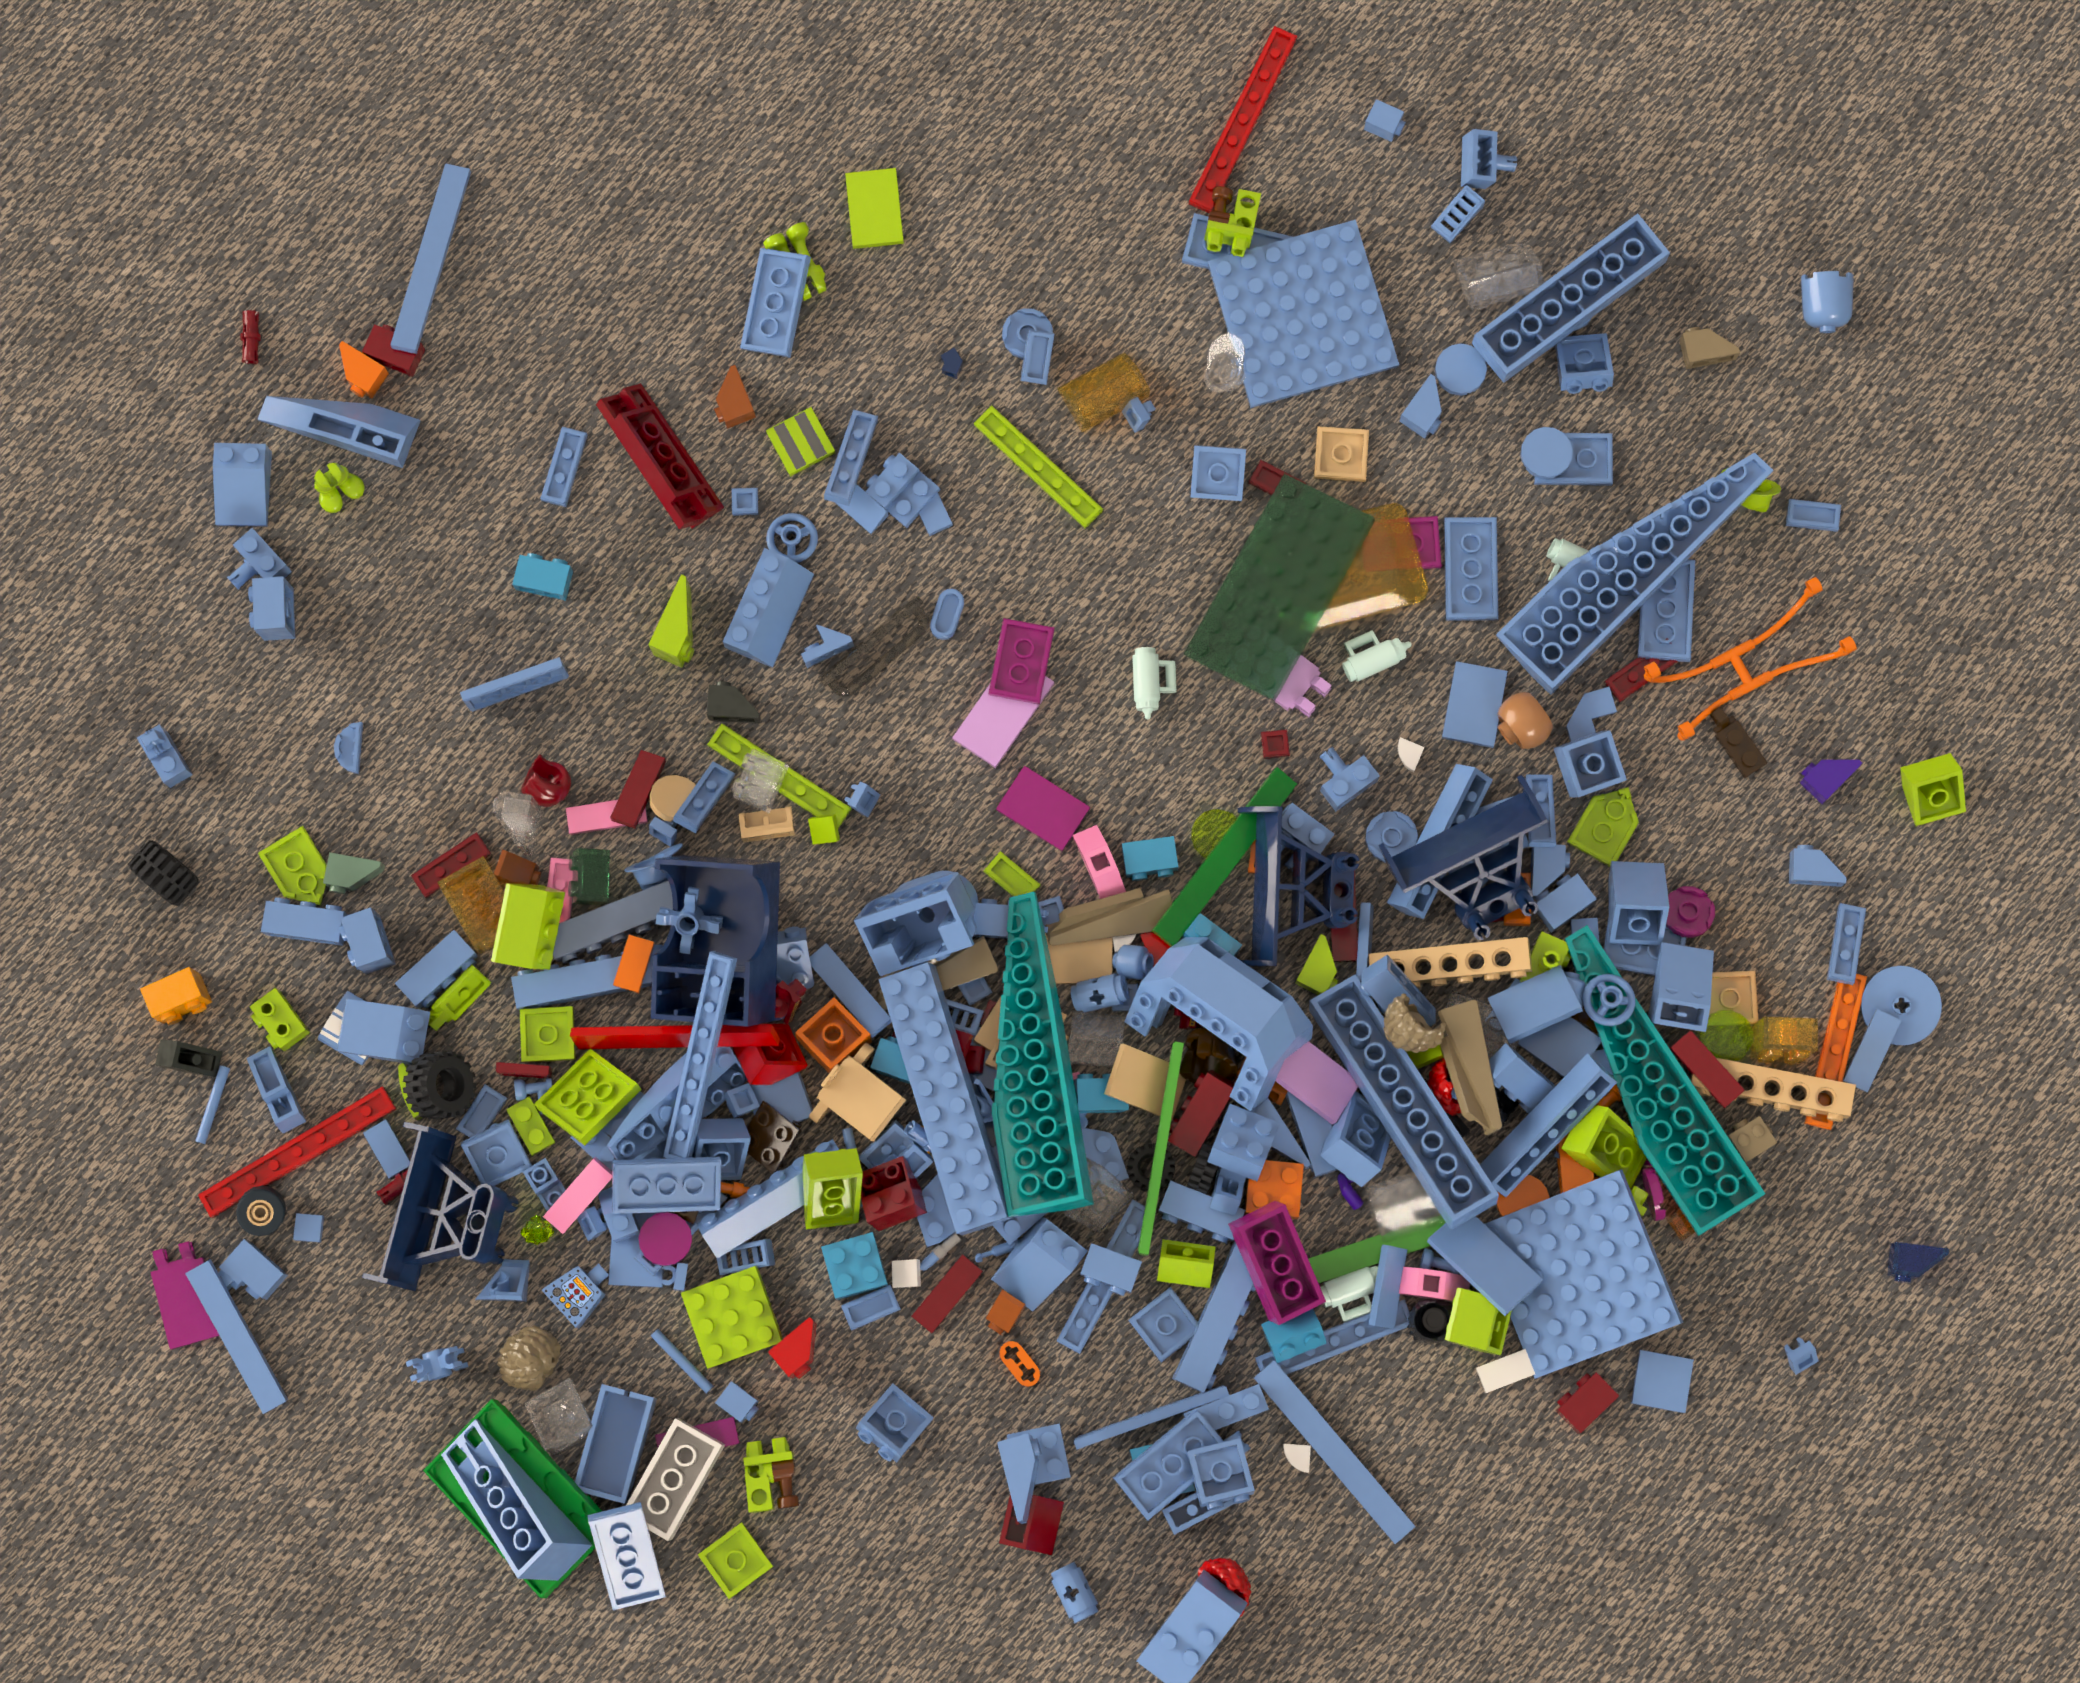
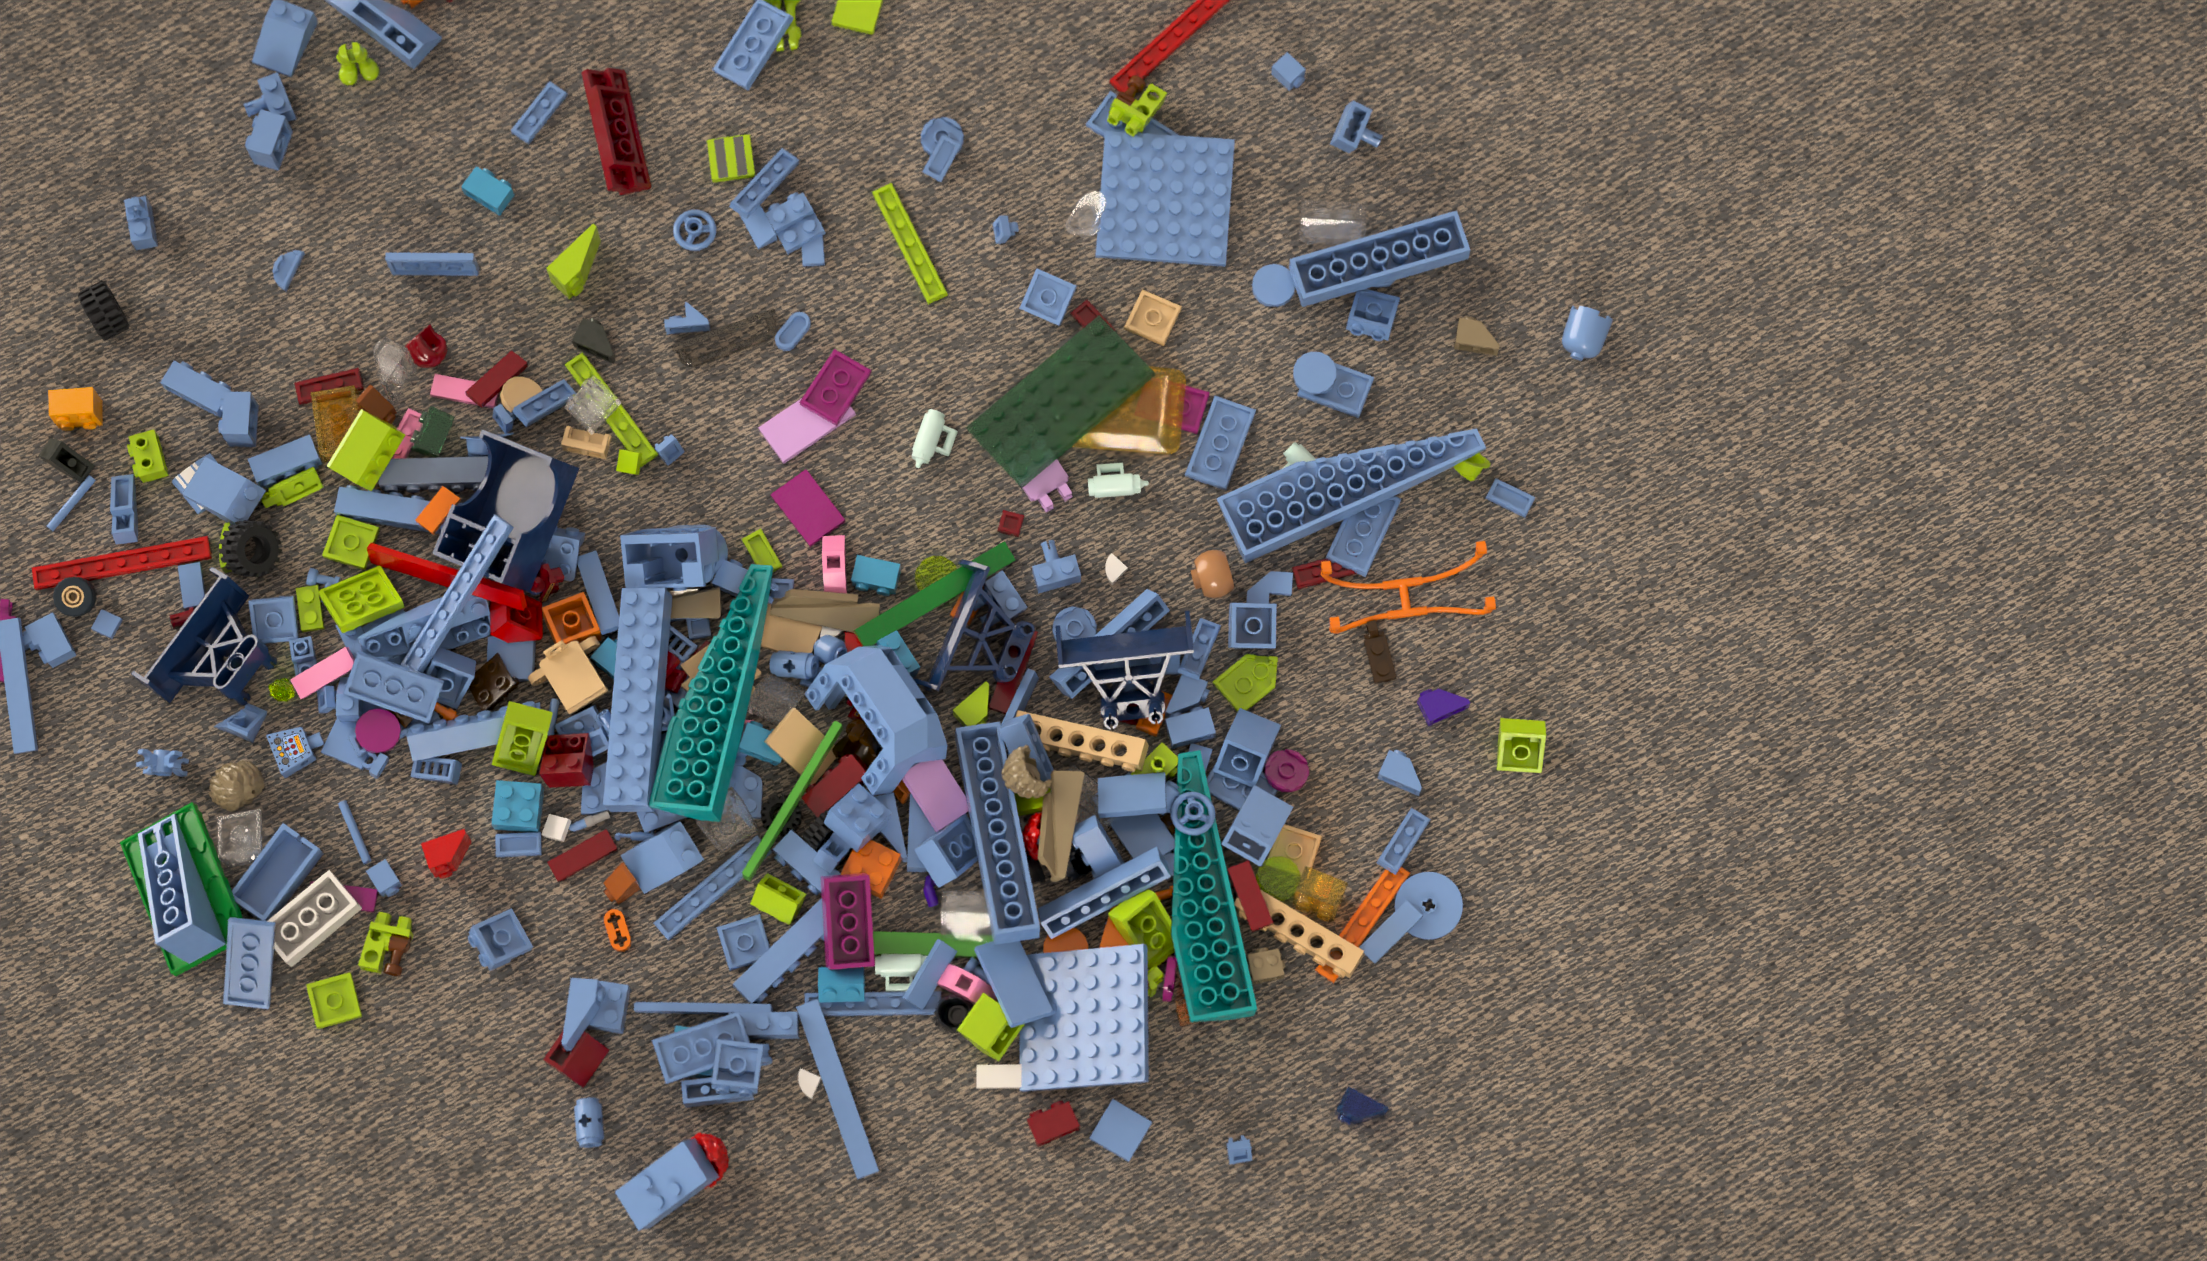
camera: 15 degrees right, 5 degrees down
(296, 866) = (209, 344): lime tile -> none
(349, 872) = (247, 363): sand green slope -> none
(482, 1112) = (277, 583): medium blue tile -> none
(523, 1070) = (321, 563): dark red tile -> none
(670, 917) = (487, 496): medium blue pin -> none
(732, 1317) = (406, 810): lime plate -> none
(733, 401) = (690, 107): dark orange slope -> none
(741, 1100) = (480, 646): medium blue tile -> none
(744, 501) = (669, 189): medium blue tile -> none
(768, 608) = (653, 276): medium blue slope -> none
(952, 363) = (873, 140): dark blue piece -> none
(1103, 391) = (983, 203): clear yellow slope -> none
(1110, 1269) = (717, 881): medium blue brick -> none
(1424, 409) = (1230, 306): medium blue slope -> none
(1473, 198) = (1338, 163): medium blue slope -> none
(1474, 704) = (1179, 548): medium blue tile -> none

